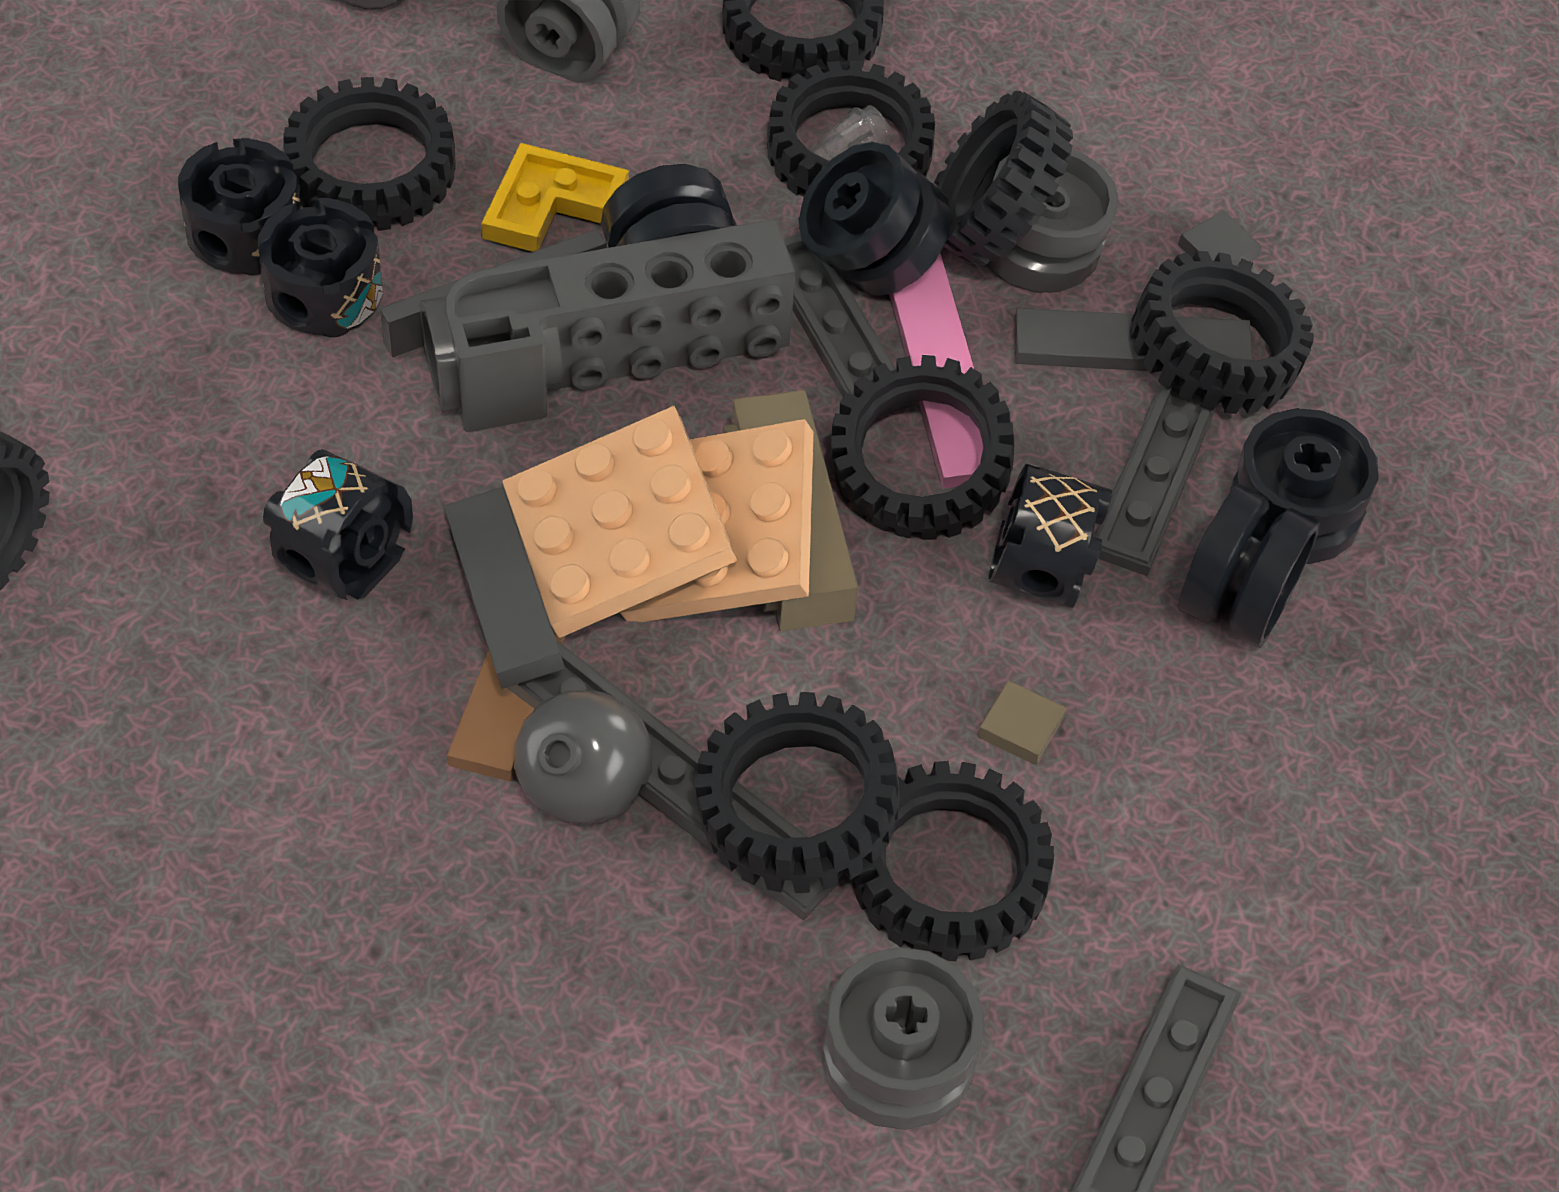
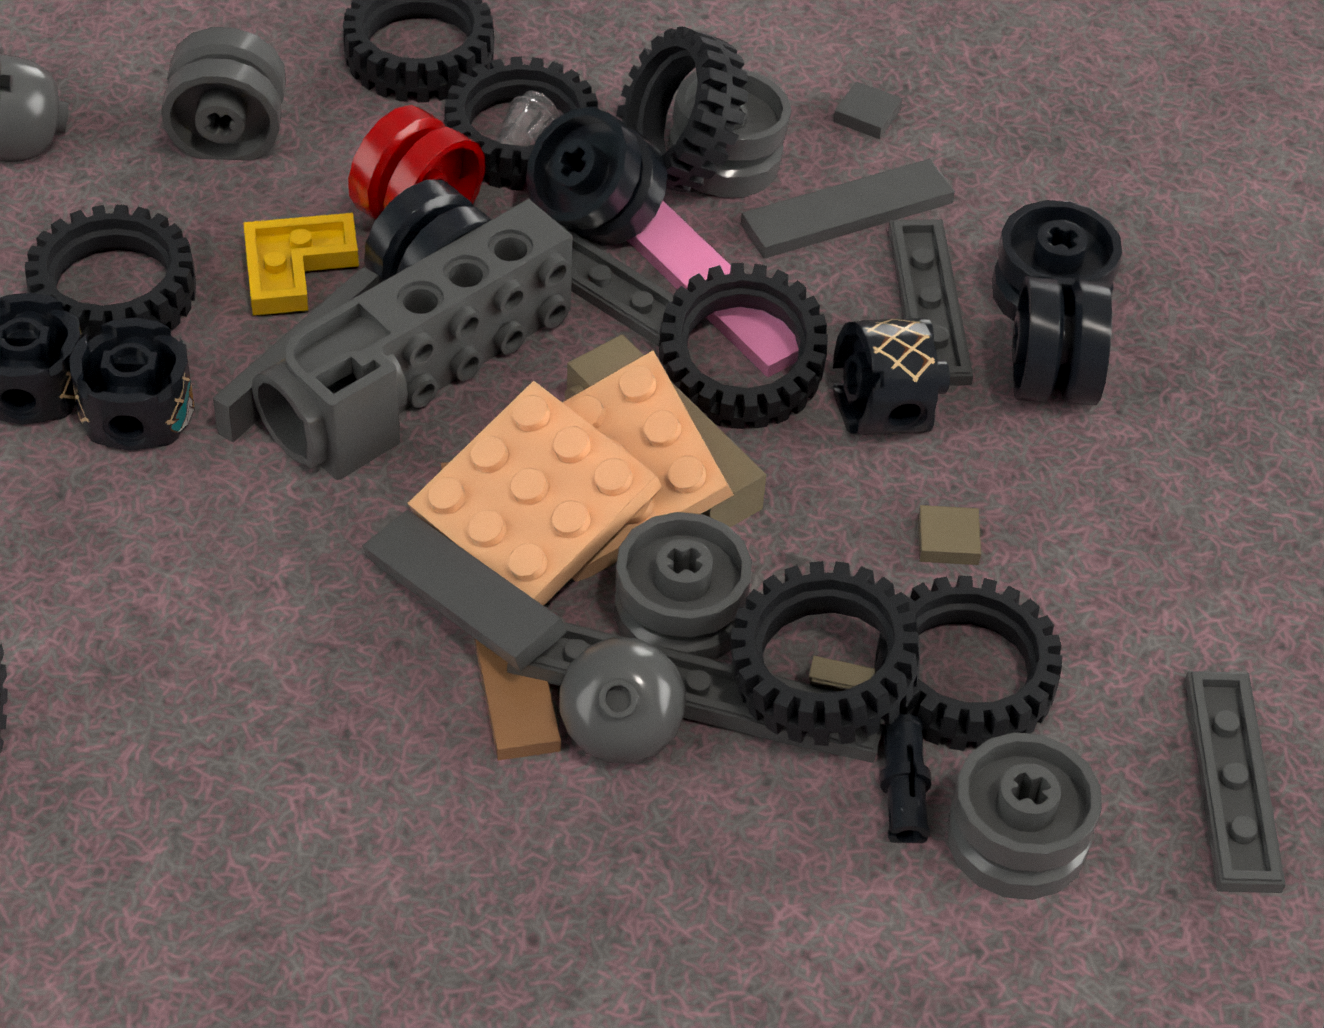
camera: 25 degrees left, 5 degrees down
(337, 514) = (289, 592): black brick -> none
(707, 659) = (682, 583): none -> dark grey wheel
(709, 129) = (406, 150): none -> red wheel
(799, 988) = (905, 780): none -> black pin
(804, 815) = (838, 674): none -> dark tan tile
(1205, 371) = (911, 201): black tyre -> none

